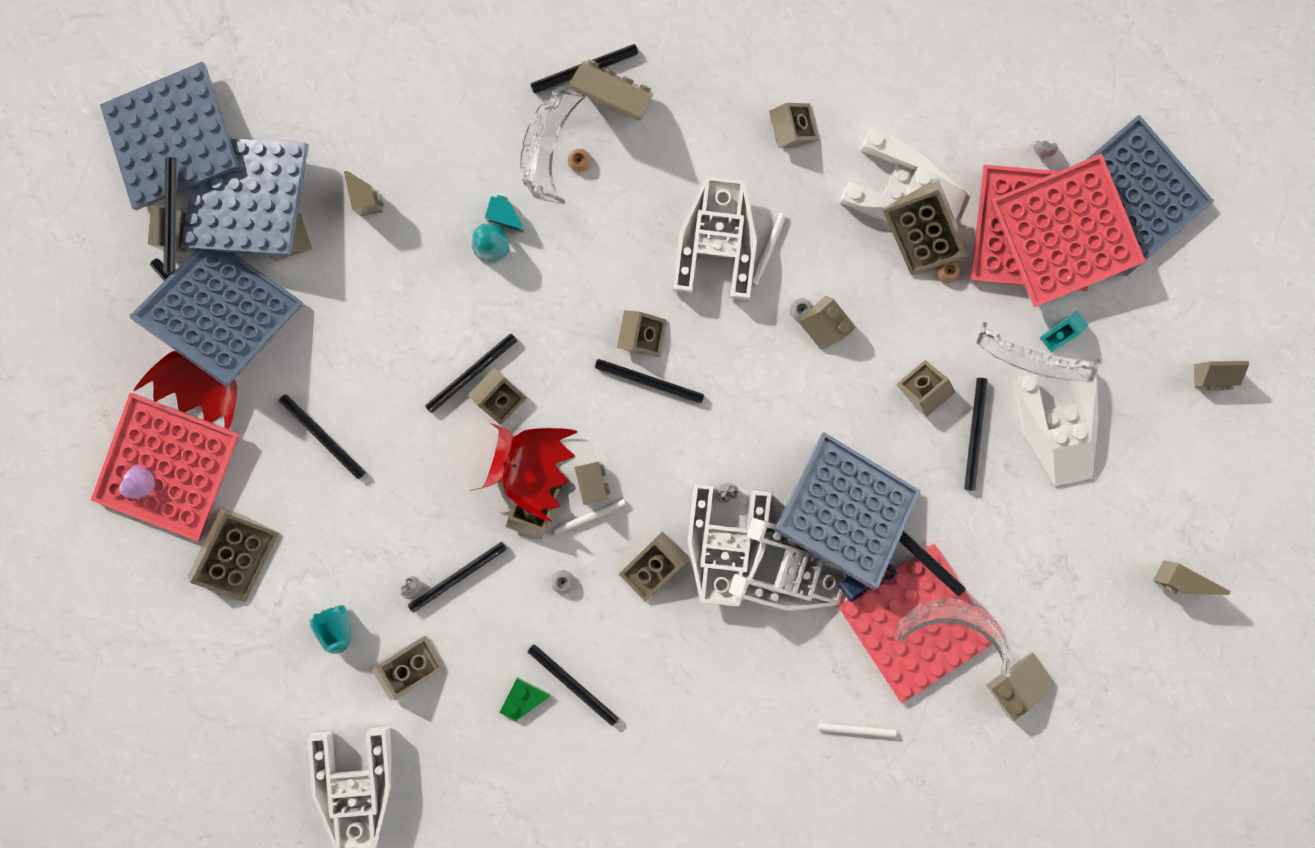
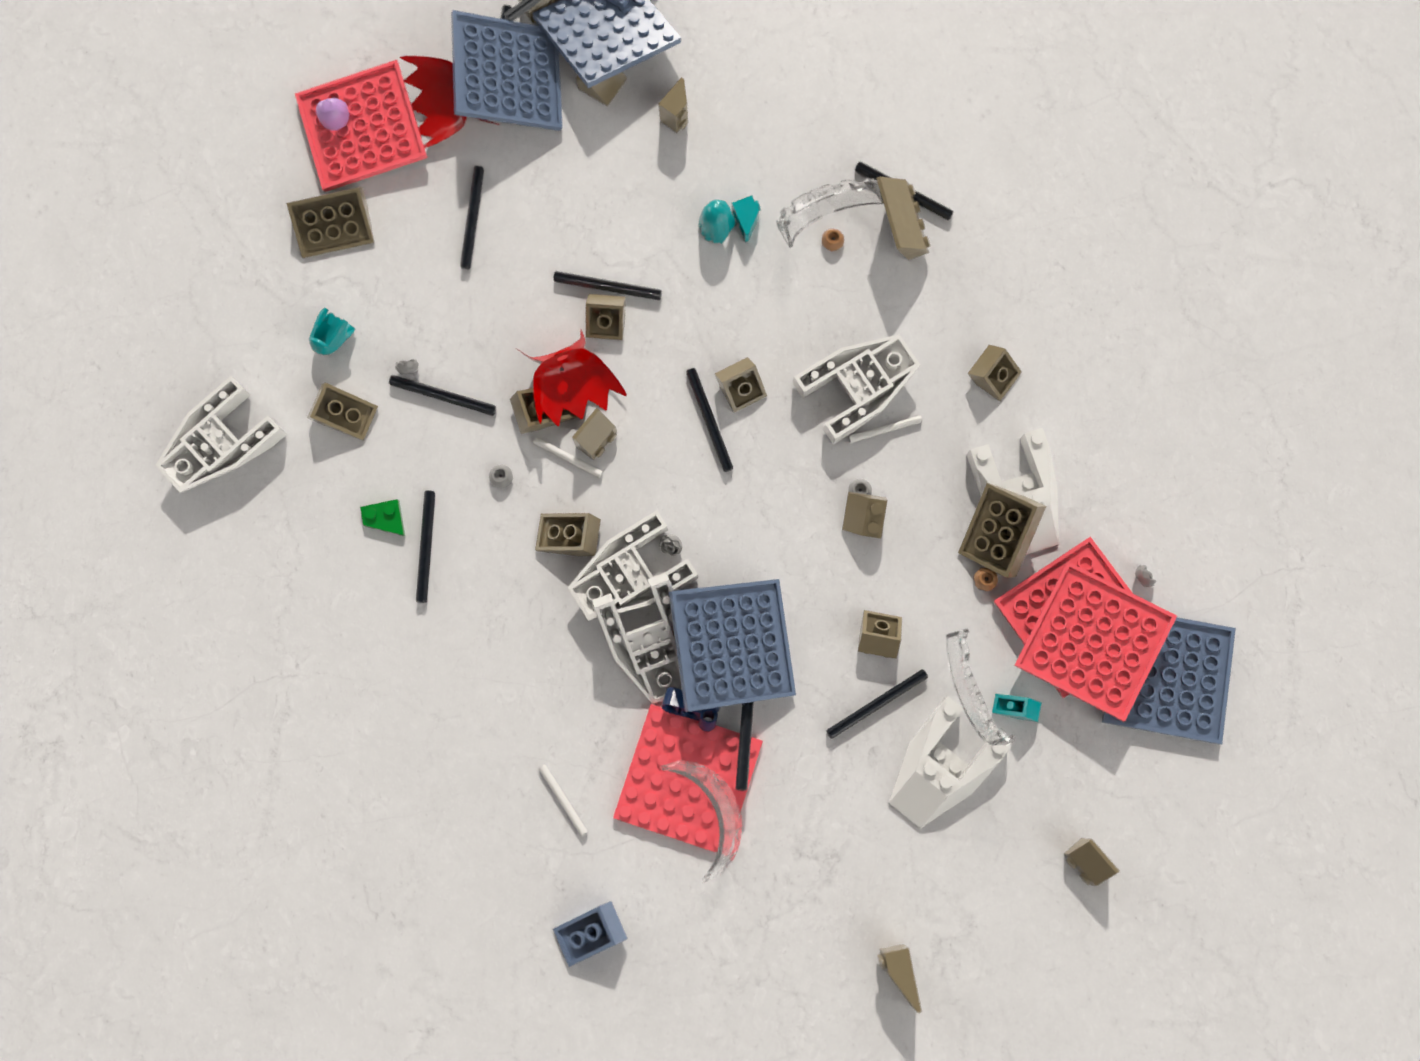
camera: 55 degrees right, 10 degrees down
(974, 787) = (590, 933): none -> sand blue slope
(1023, 688) = (705, 906): dark tan slope -> none

